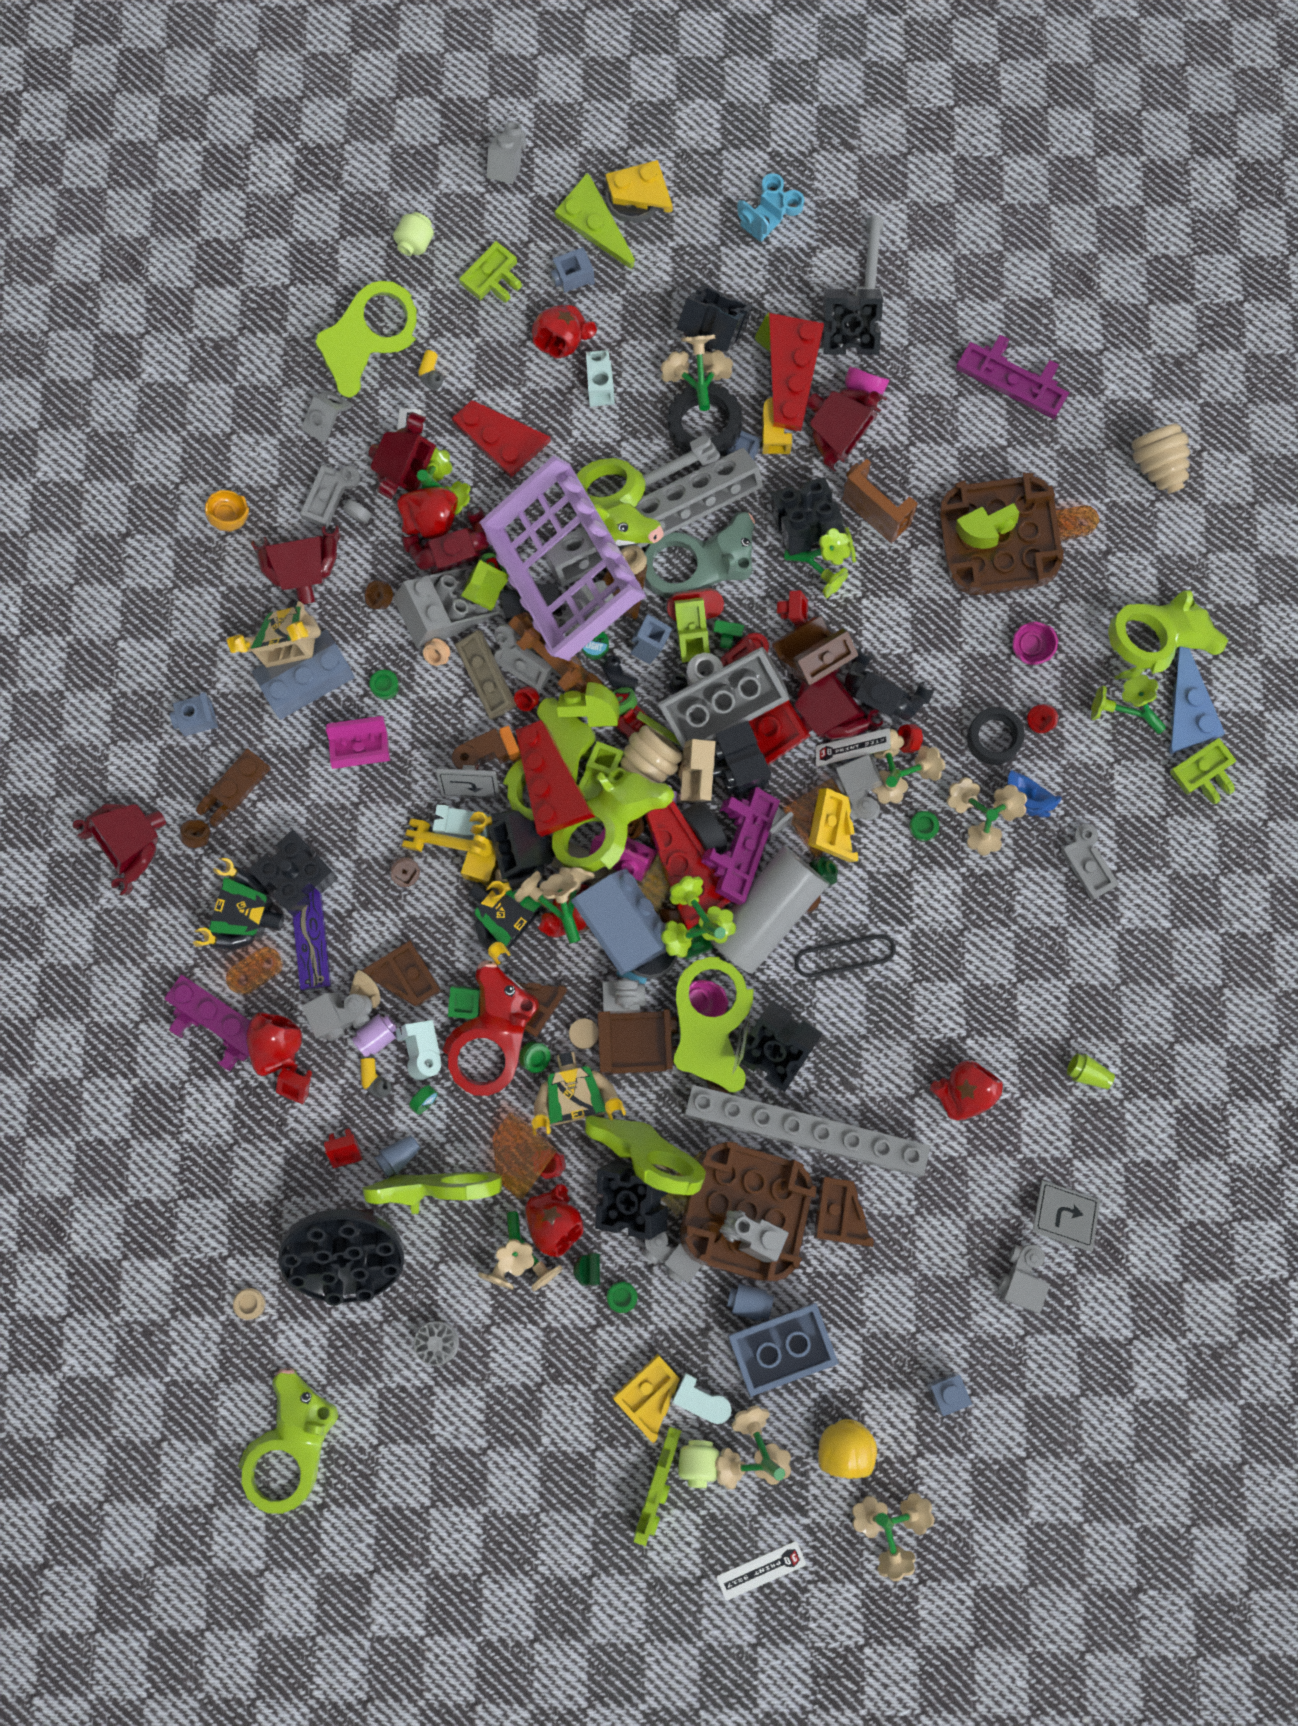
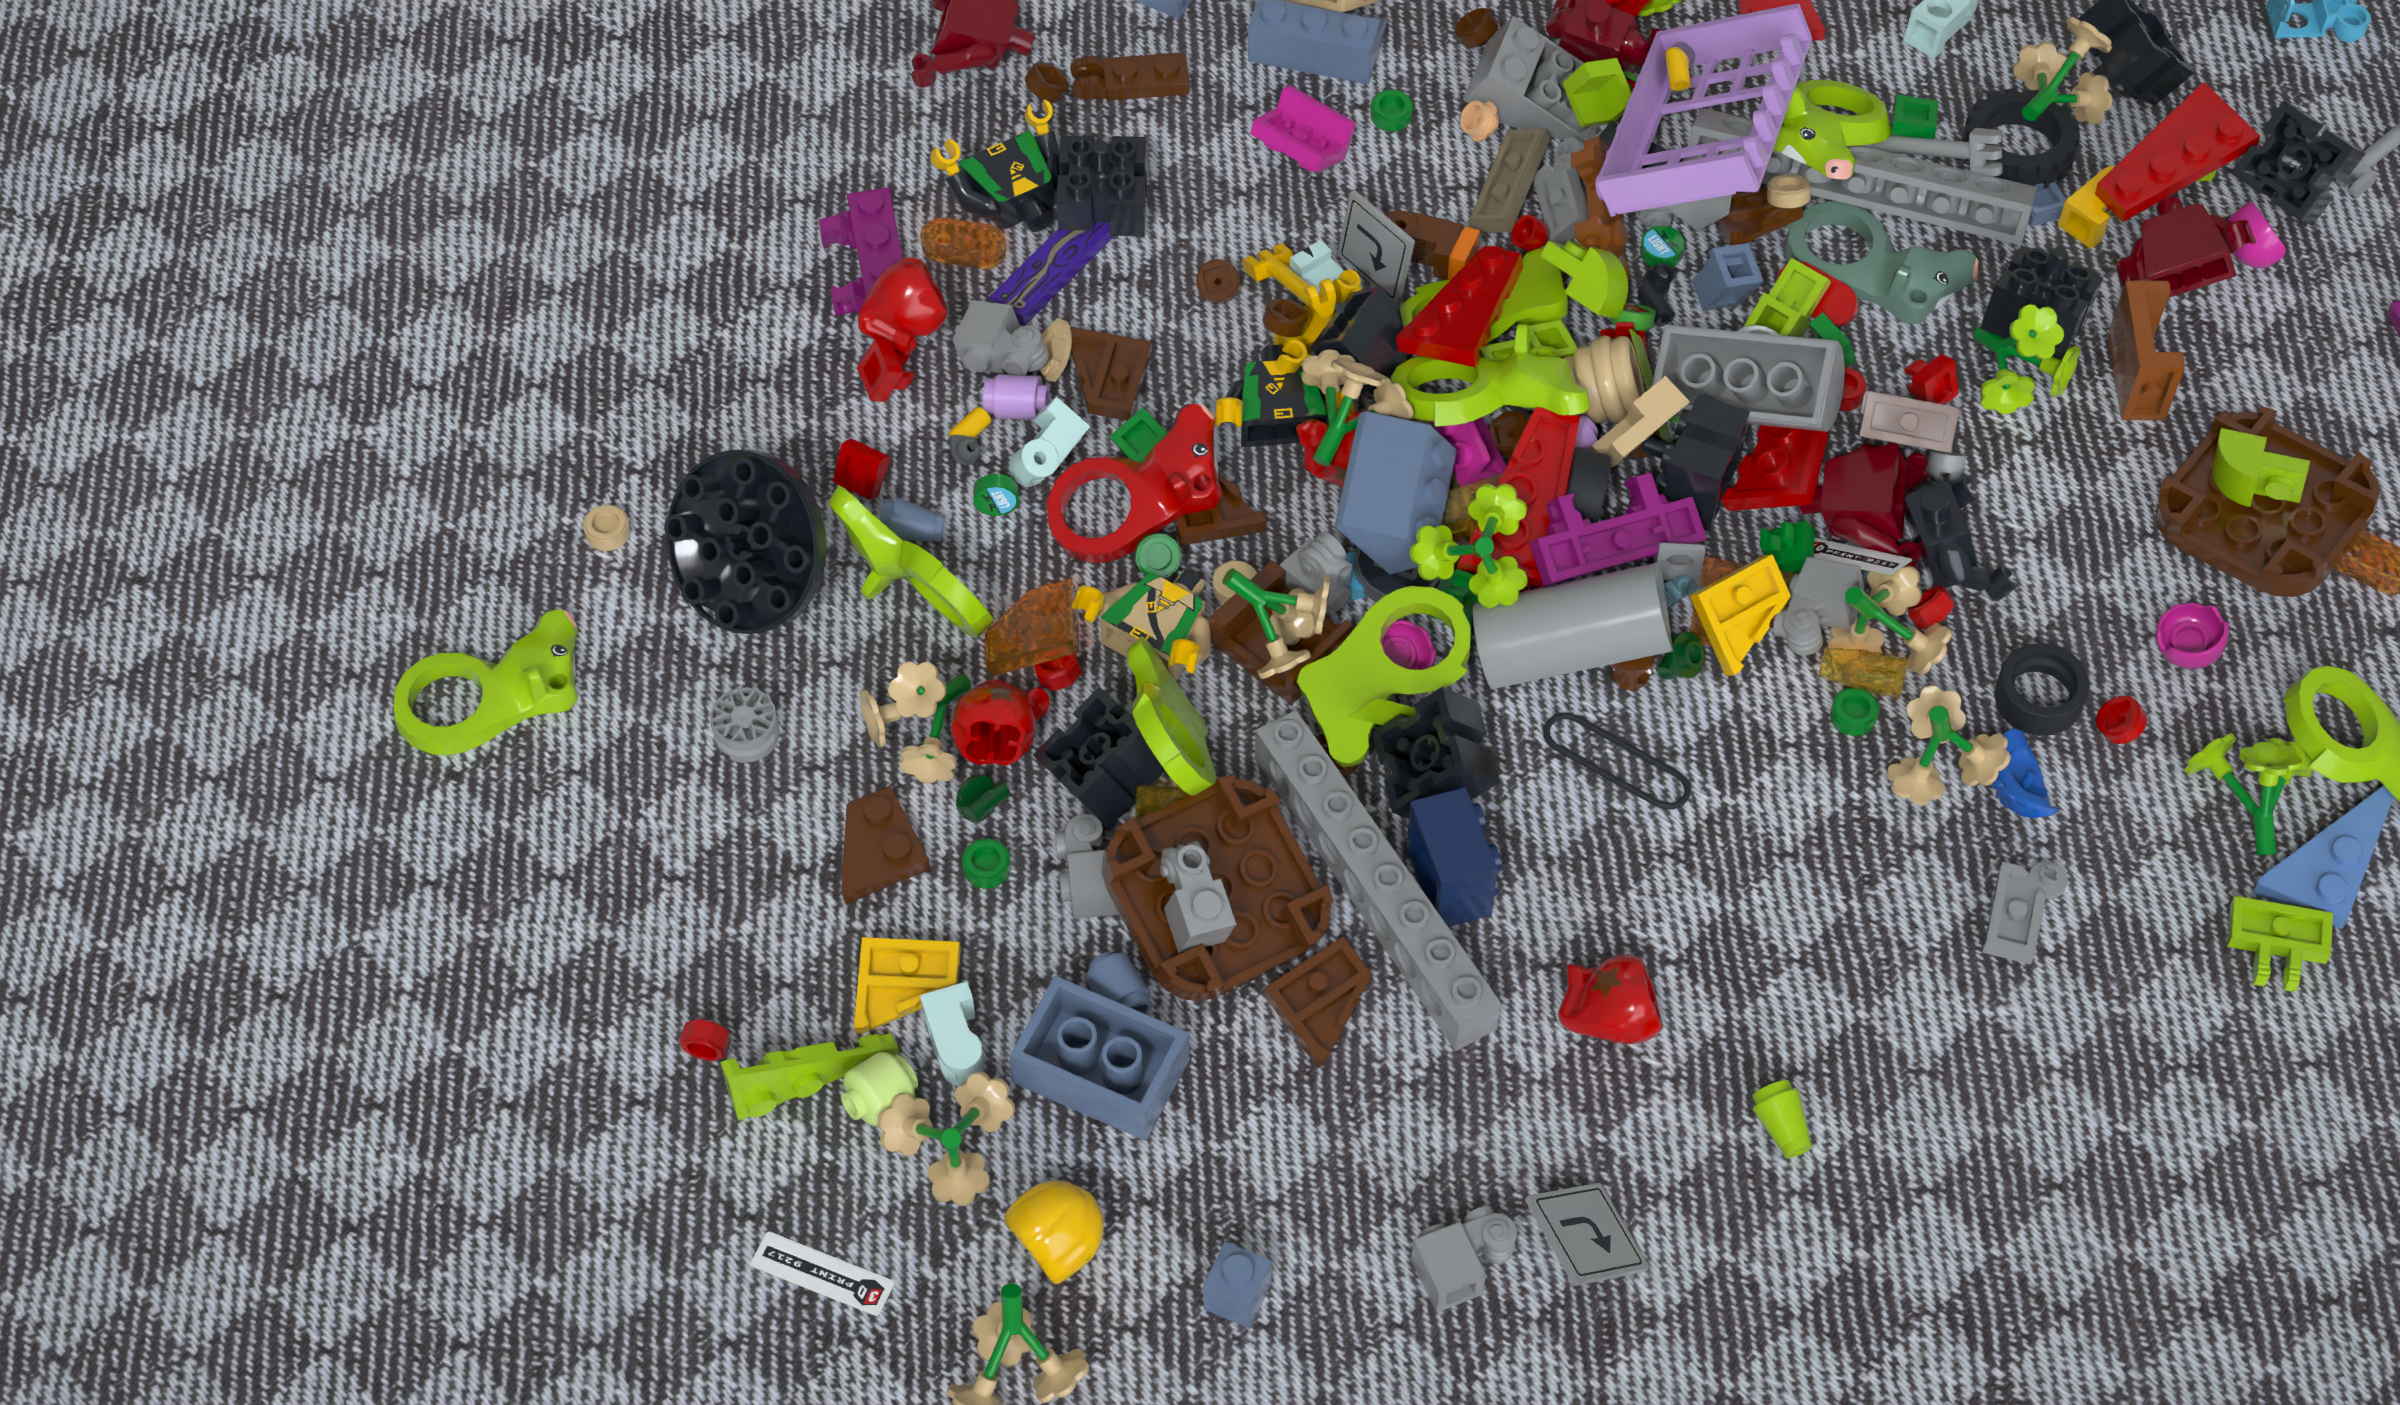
camera: 45 degrees right, 20 degrees down
(471, 871) = (1285, 317): none -> reddish brown tile
(506, 528) = (1678, 60): none -> yellow arm
(563, 1339) = (878, 846): none -> reddish brown wing
(593, 1519) = (705, 1039): none -> red tile
(635, 1031) = (1293, 618): none -> tan plant
(646, 456) = (1914, 117): none -> green tile
(788, 834) = (1679, 588): none -> clear light blue animal
(817, 767) = (1789, 544): none -> green tile
(836, 1090) = (1453, 856): none -> dark blue piece
(912, 801) = (1864, 670): none -> clear yellow hinge

